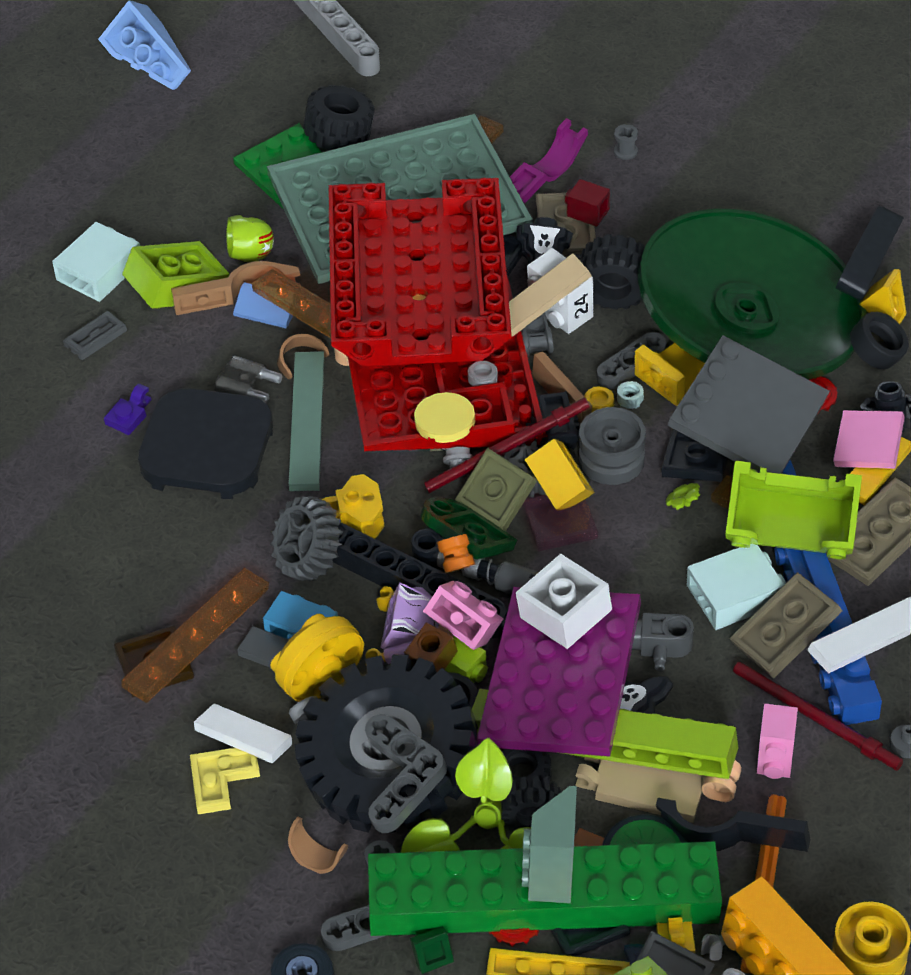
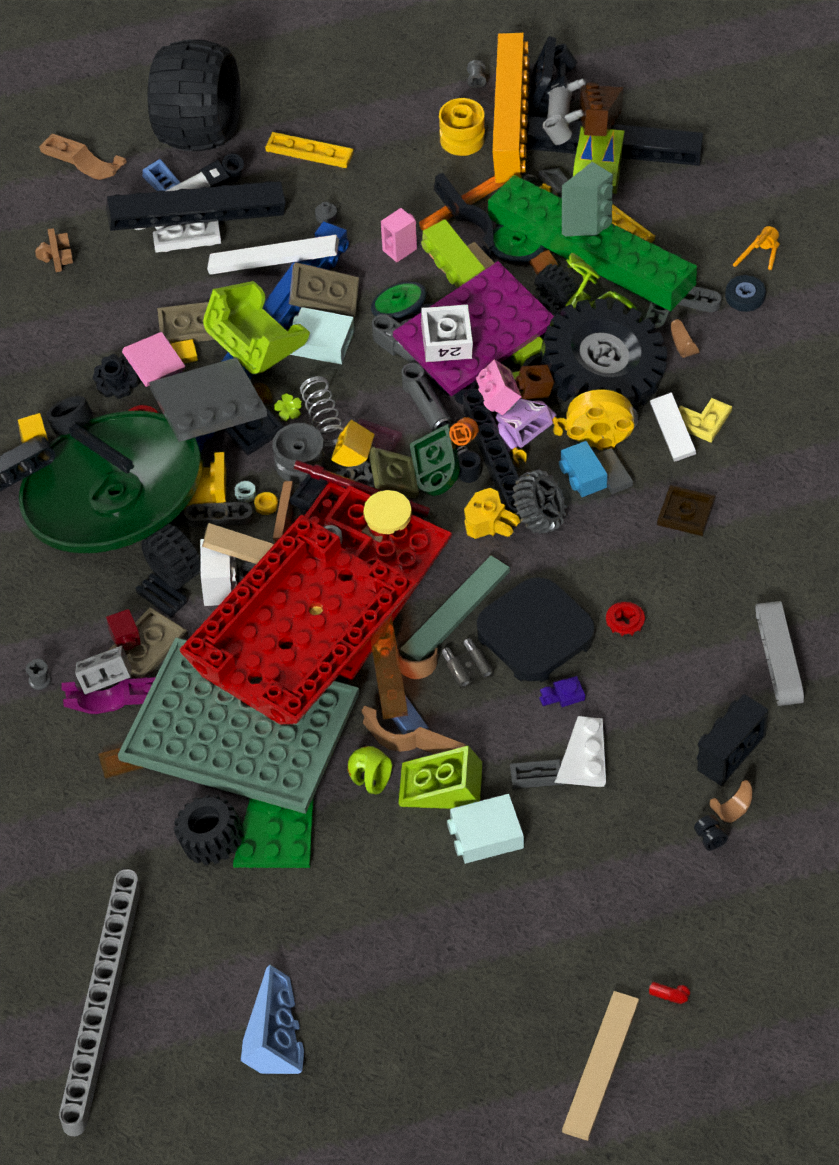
camera: 140 degrees left, 5 degrees up
(60, 370) = (584, 755): none -> white wing
(123, 502) = (631, 612): none -> red gear
(194, 635) = (650, 501): clear orange tile -> none
(412, 763) = (609, 314): dark grey beam -> none
(541, 237) = (185, 620): black rock -> none
(567, 165) = (103, 669): none -> light grey brick
(668, 521) = (313, 395): none -> light grey piece
(698, 681) = (399, 299): none -> green wheel
(796, 307) = (101, 448): none -> black axle
(869, 746) = (348, 221): dark red bar -> none

